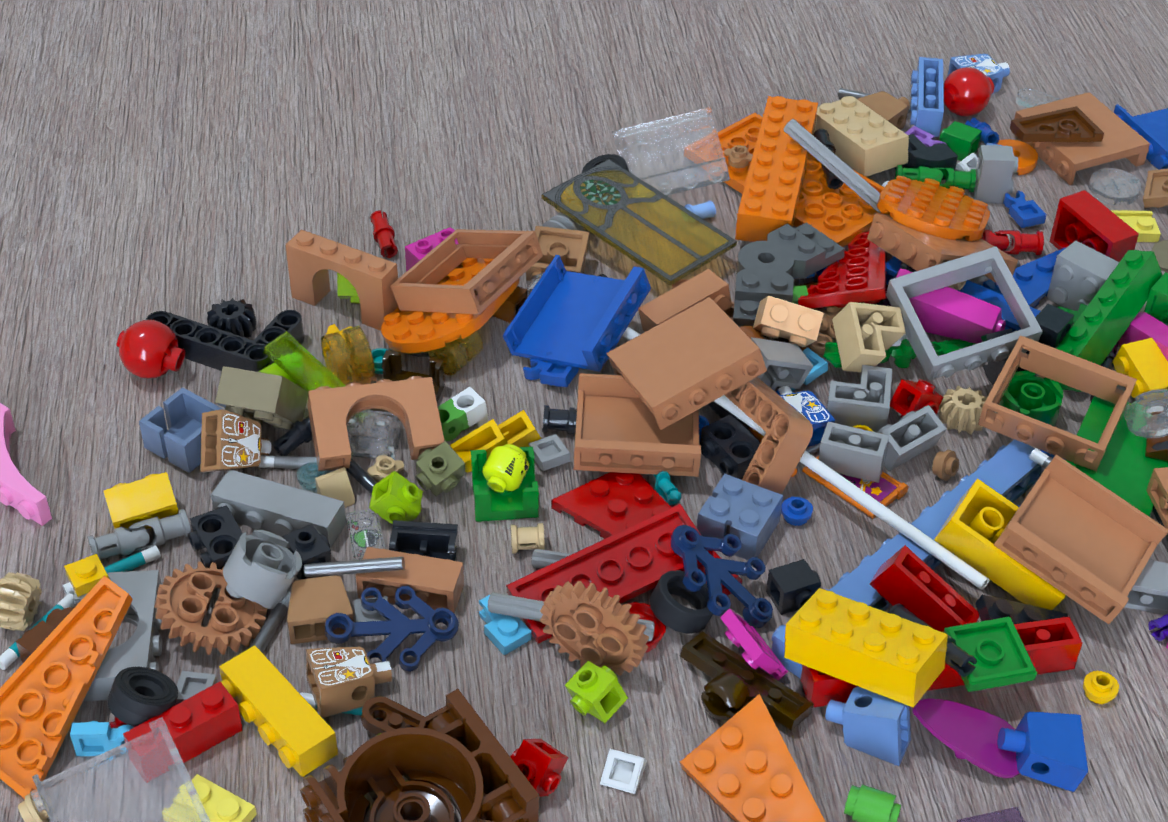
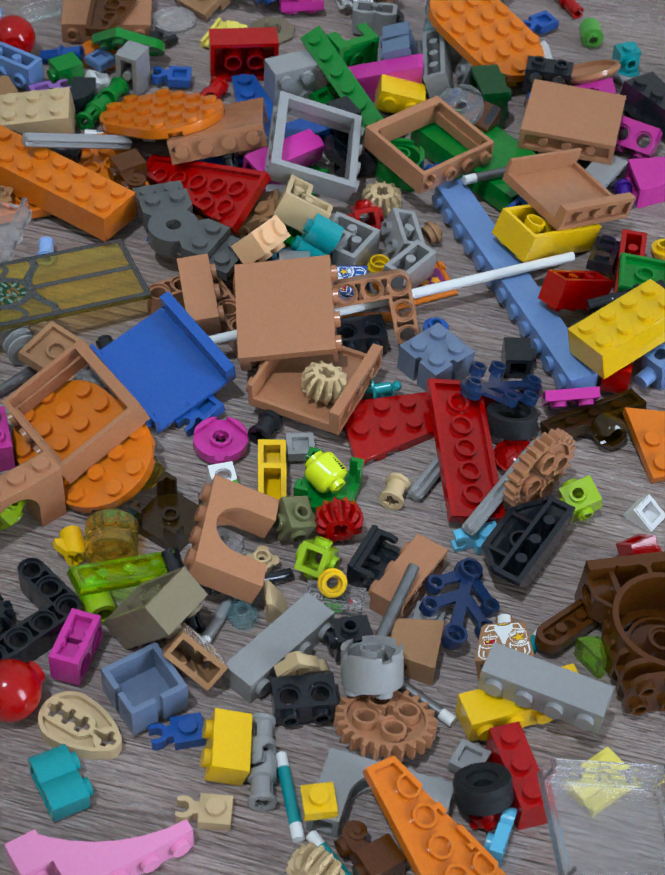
camera: 70 degrees left, 5 degrees up
(72, 415) = (60, 782): none -> teal brick
(77, 521) = (211, 812): none -> tan plate
(128, 409) = (85, 712): none -> tan piece
(156, 467) = (183, 731): none -> blue plate
(204, 370) = (75, 646): none -> dark pink brick
(247, 517) = (300, 664): none -> tan plate
(275, 707) = (545, 688): none -> light grey brick
(367, 518) = (338, 589): none -> yellow plate
(454, 500) = (339, 519): none -> red gear
(496, 657) = (526, 539): none -> black wedge
(510, 392) = (220, 452): none -> dark pink plate
(621, 423) = (323, 382): none -> tan gear
(830, 363) = (319, 236): none -> teal brick
(835, 216) = (128, 169): none -> reddish brown brick
(1027, 160) = (116, 37): none -> green plate
(1069, 180) = (158, 34): none -> black plate

